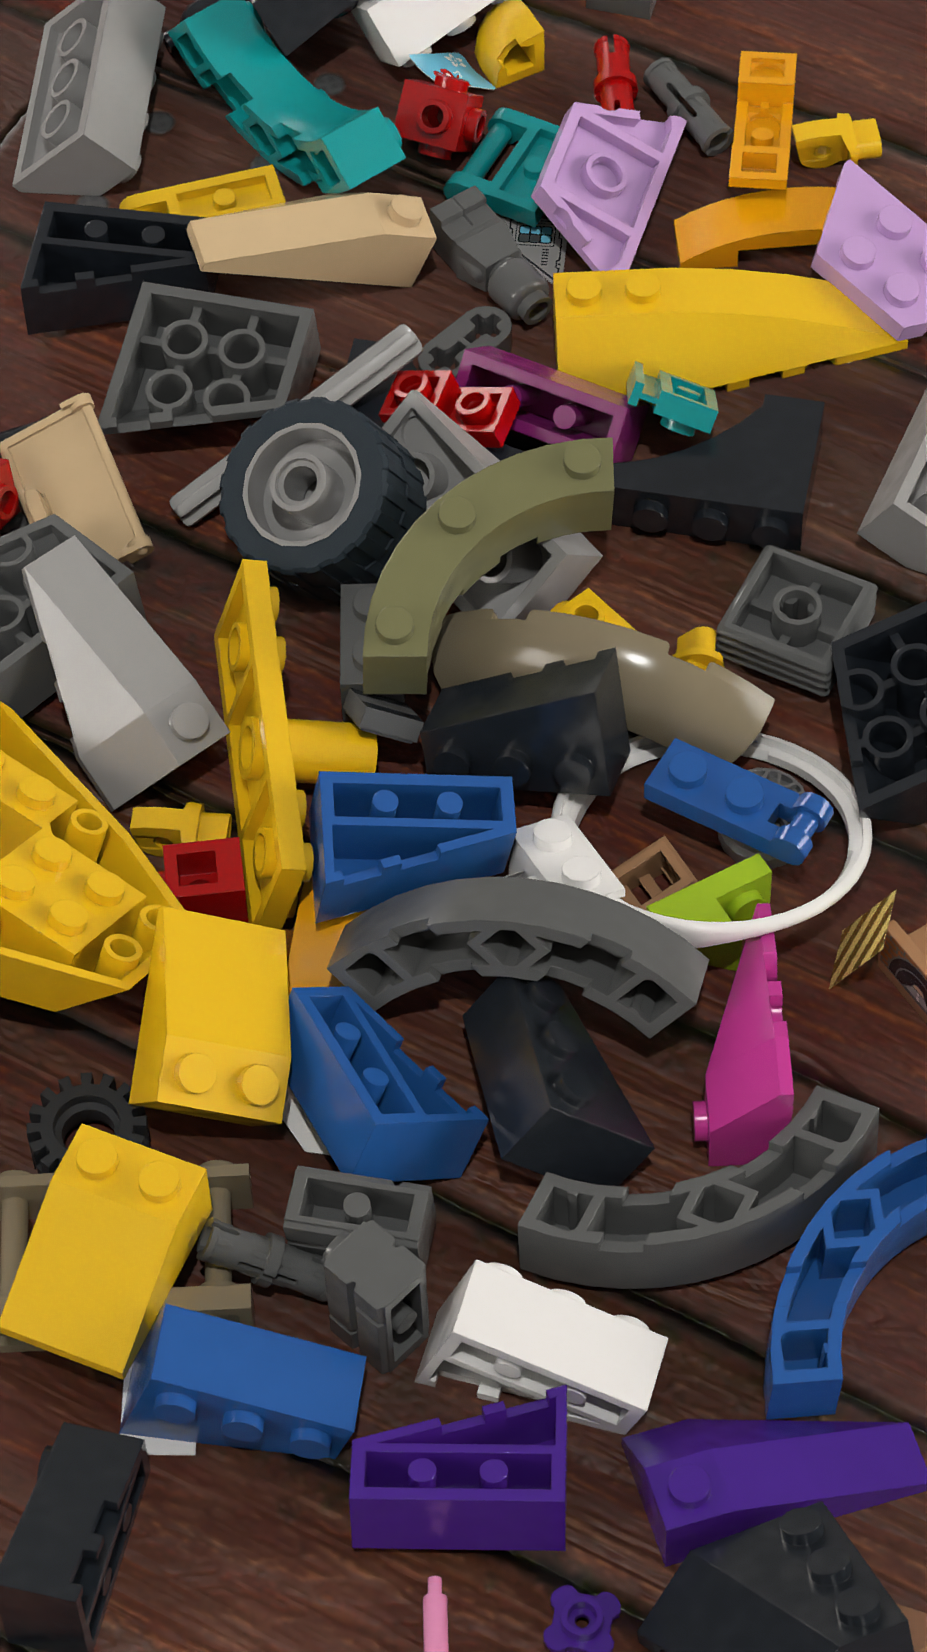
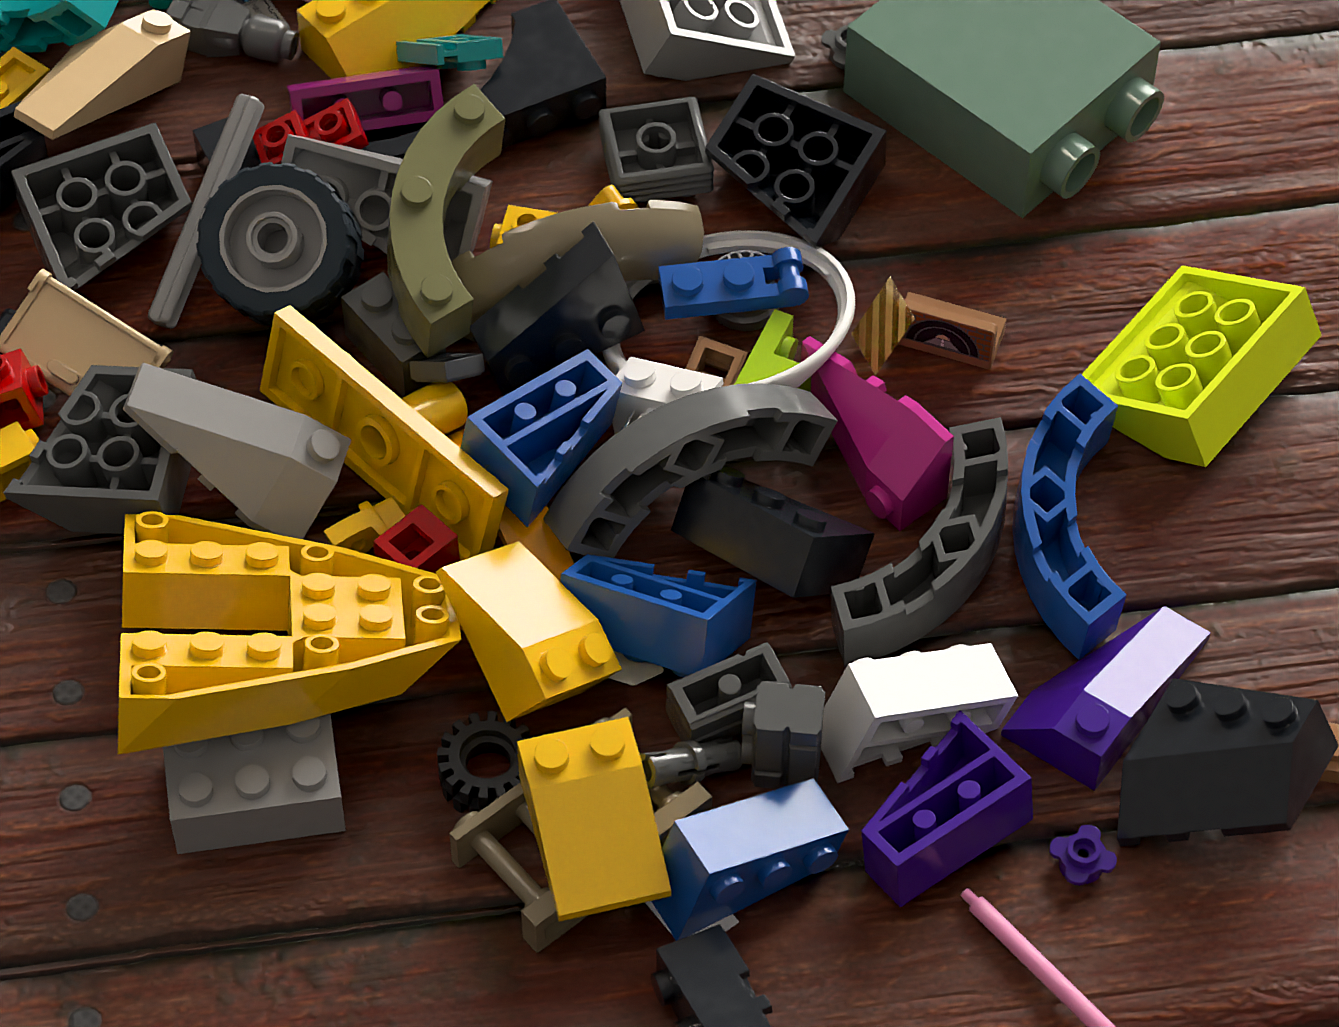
camera: 40 degrees left, 0 degrees up
(449, 345) = (277, 99): dark grey beam -> none

